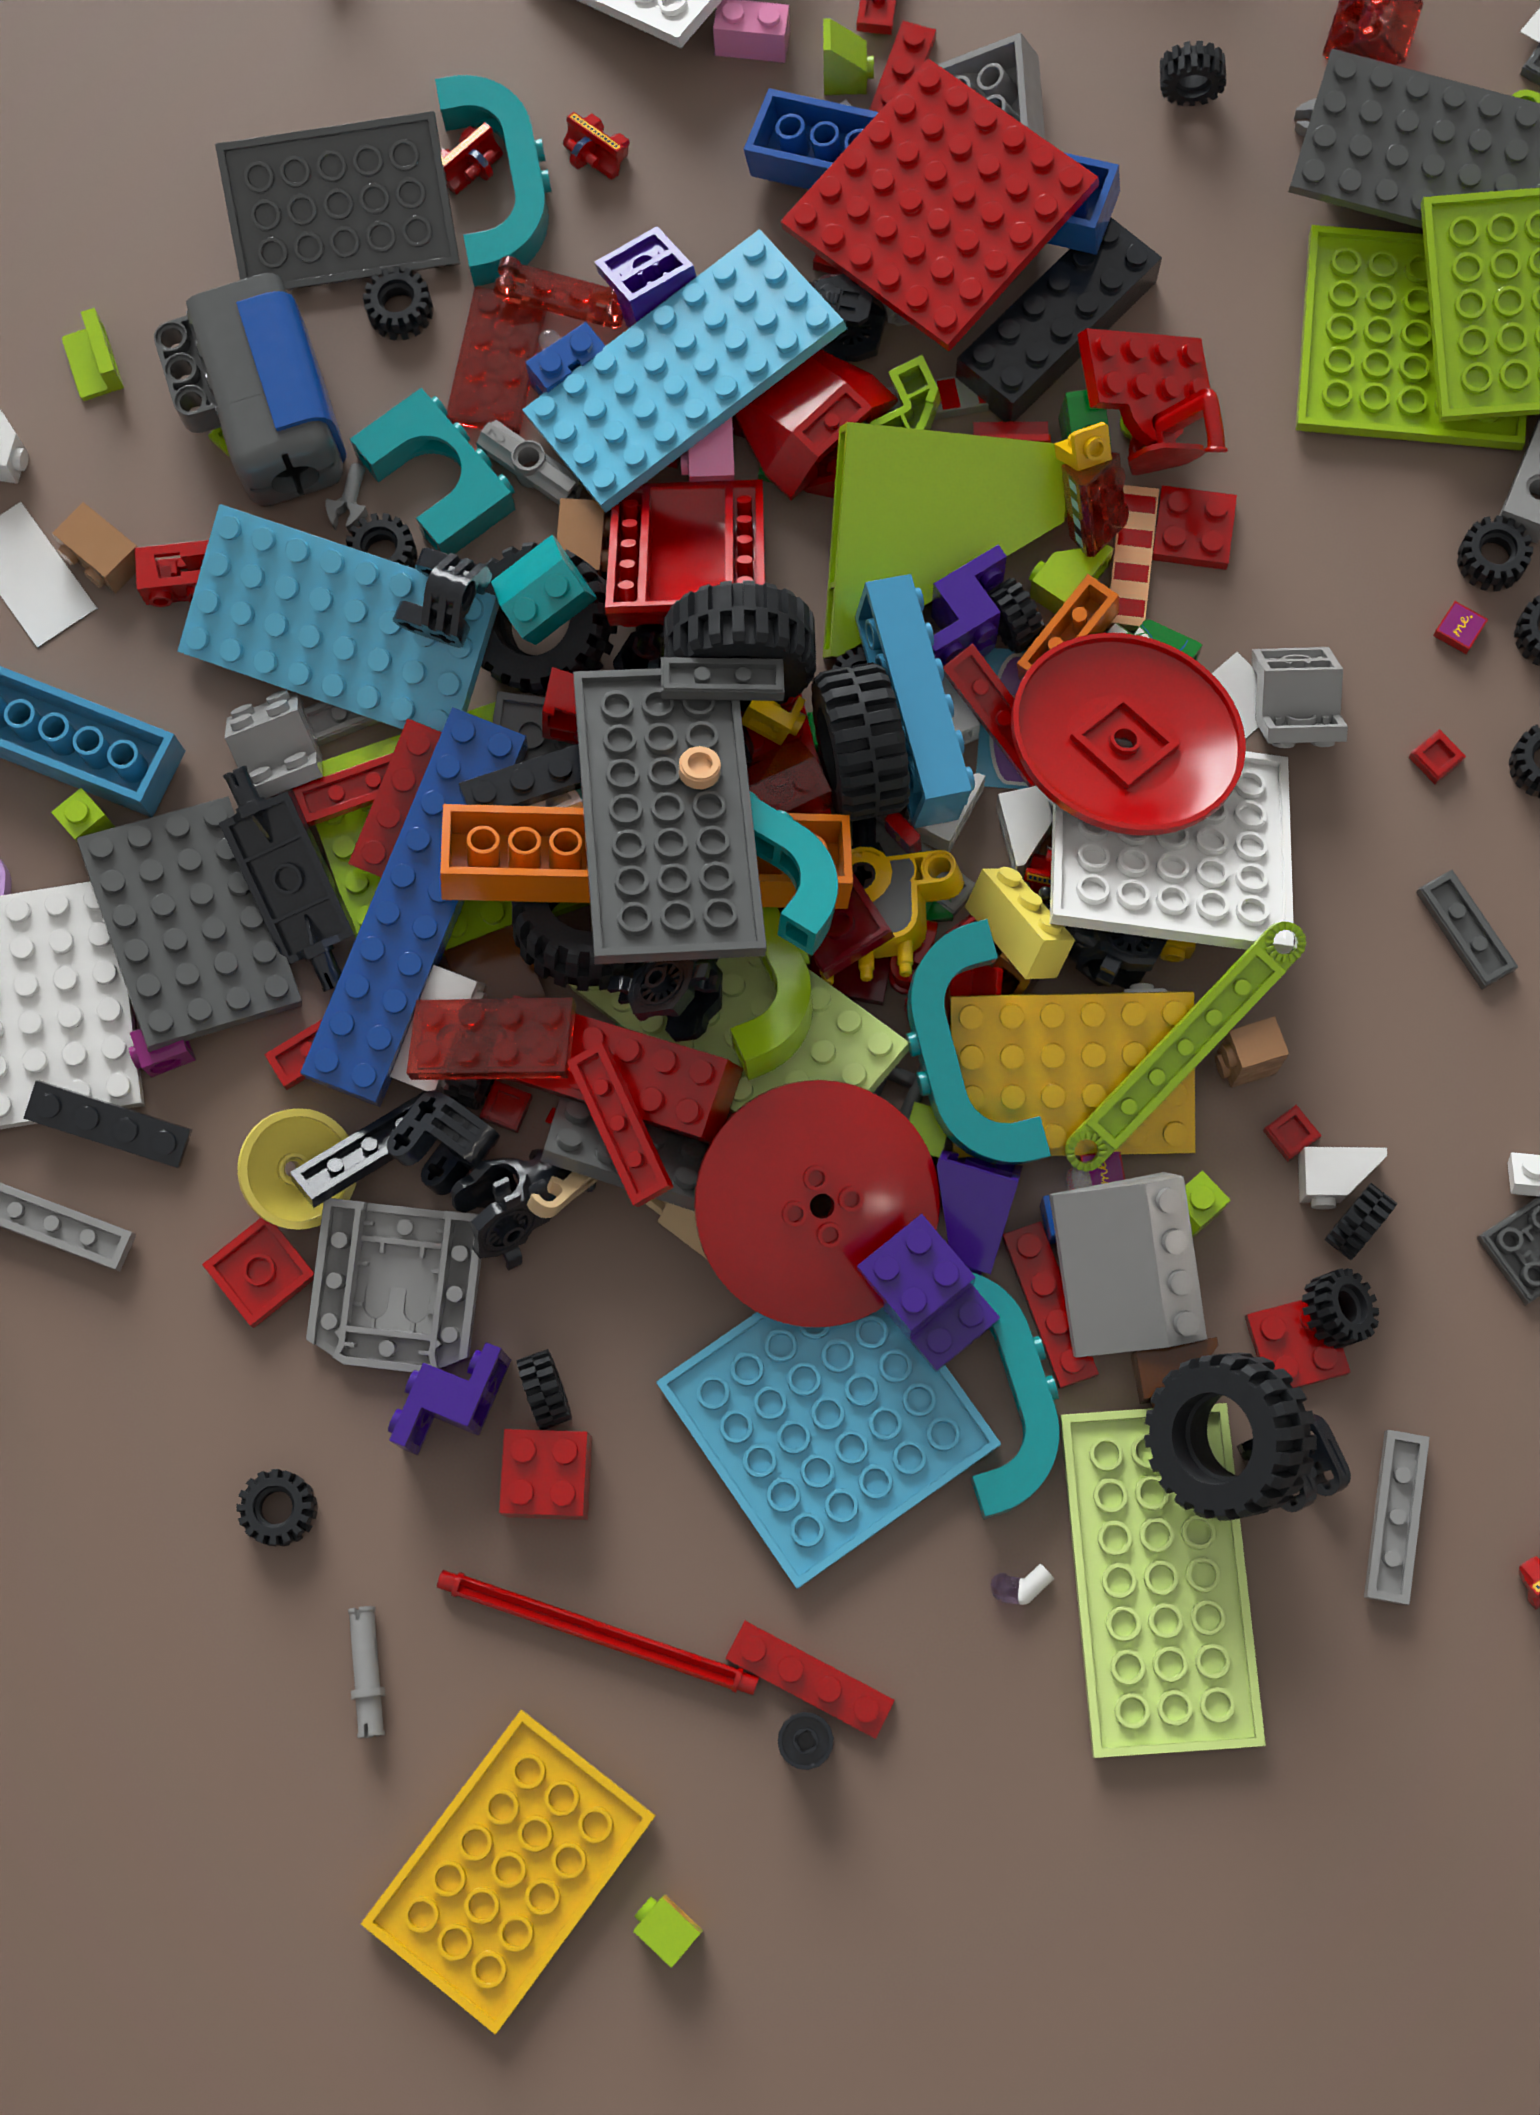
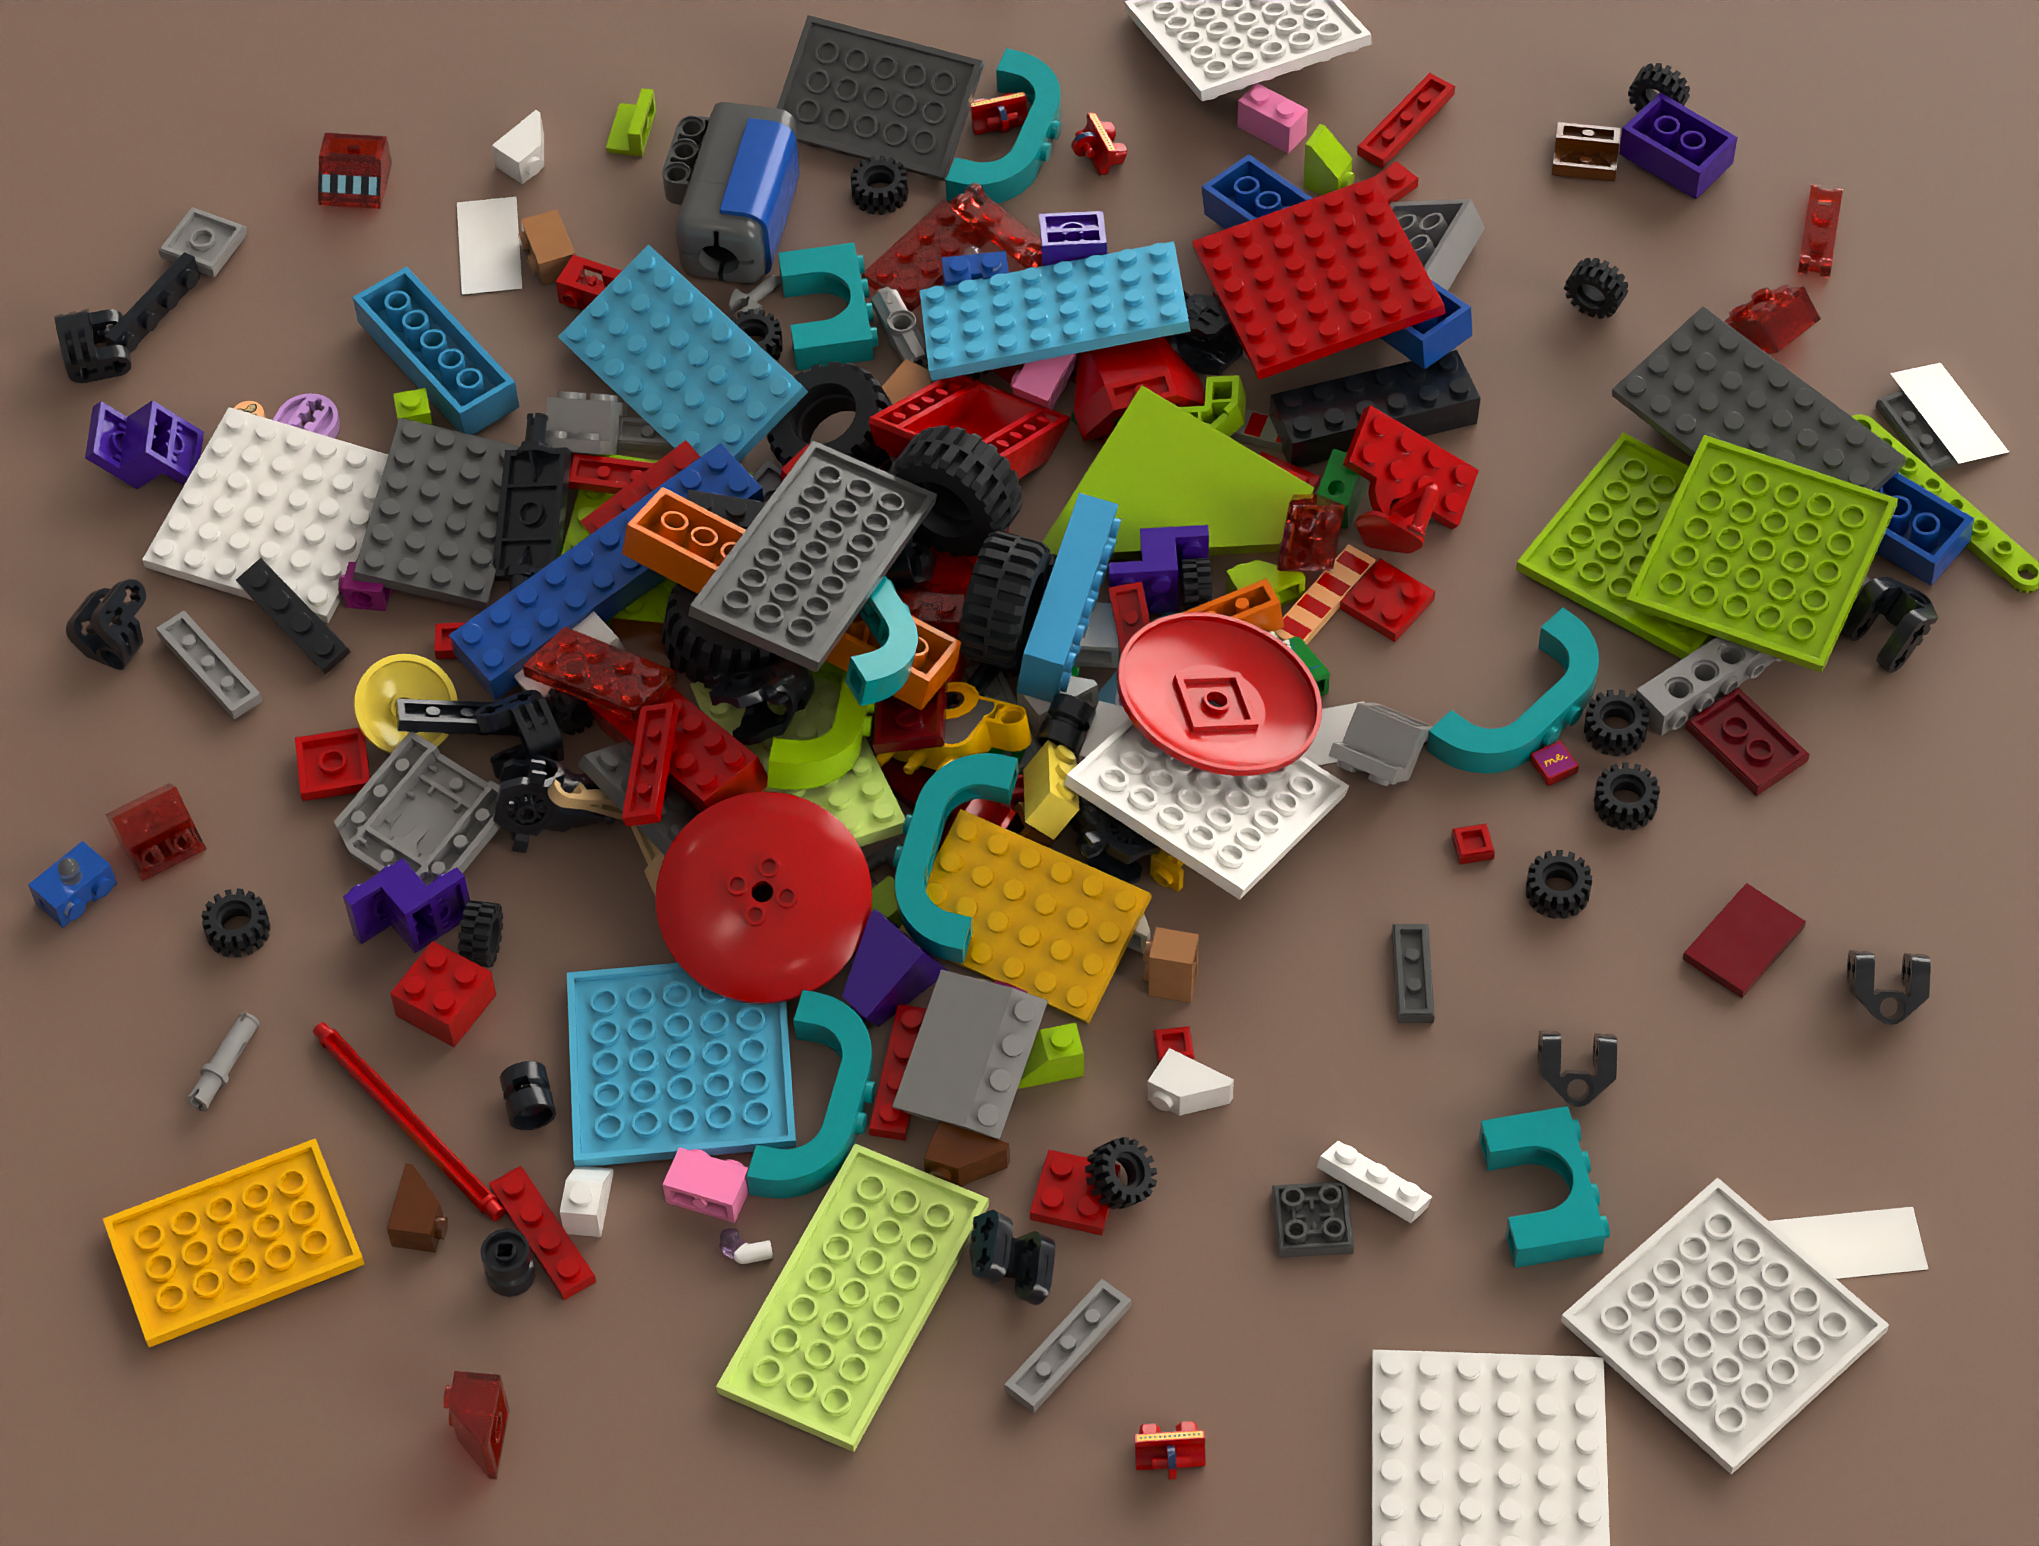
camera: 25 degrees right, 20 degrees down
(77, 1558) = (72, 883): none -> blue piece
(123, 1449) = (156, 831): none -> clear red slope
(447, 597) = (760, 361): black piece -> none
(506, 1106) = (585, 741): red tile -> none
(542, 591) = (837, 399): teal slope -> none
(666, 1929) = (318, 1339): lime brick -> none
(677, 1734) = (416, 1215): none -> reddish brown slope
(699, 767) = (857, 536): light nougat tile -> none
(716, 1552) = (527, 1095): none -> black wheel
(722, 679) = (918, 494): dark grey tile -> none
(772, 721) = (951, 560): yellow bracket -> none
(833, 1617) = (586, 1200): none -> white slope
(891, 1936) = (479, 1417): none -> clear red slope
(903, 833) = (1007, 687): red tile -> none
(928, 1292) = (804, 995): dark purple bracket -> none
(944, 1538) = (706, 1184): none -> bright pink brick
(986, 840) = (1067, 722): none -> black wheel
(1085, 447) = (1318, 485): yellow bracket -> none
(1185, 1045) = (1116, 923): lime plate -> none
(1277, 1425) = (960, 1190): black tyre -> none
(1361, 1221) = (1178, 1121): black tyre -> none
(1427, 507) = (1505, 748): none -> teal arch

